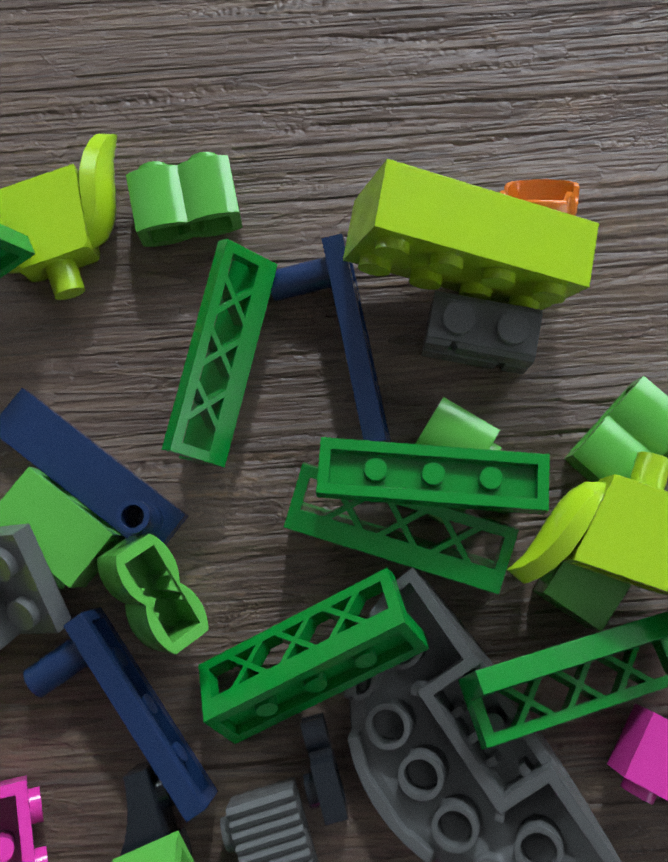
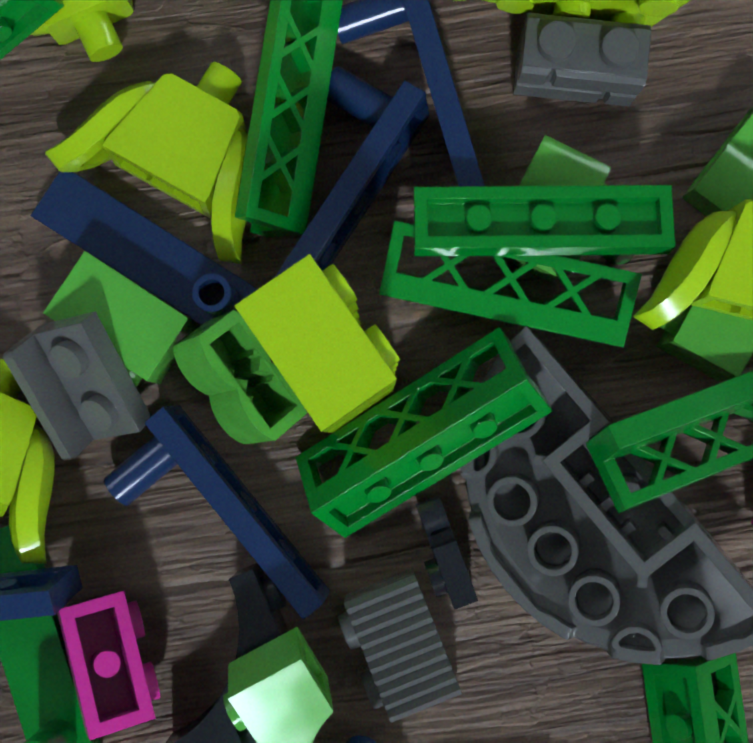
camera: 10 degrees left, 5 degrees up
(119, 373) = (174, 140): none -> lime torso
(216, 582) = (317, 343): none -> lime brick
(313, 377) = (394, 127): none -> dark blue piece

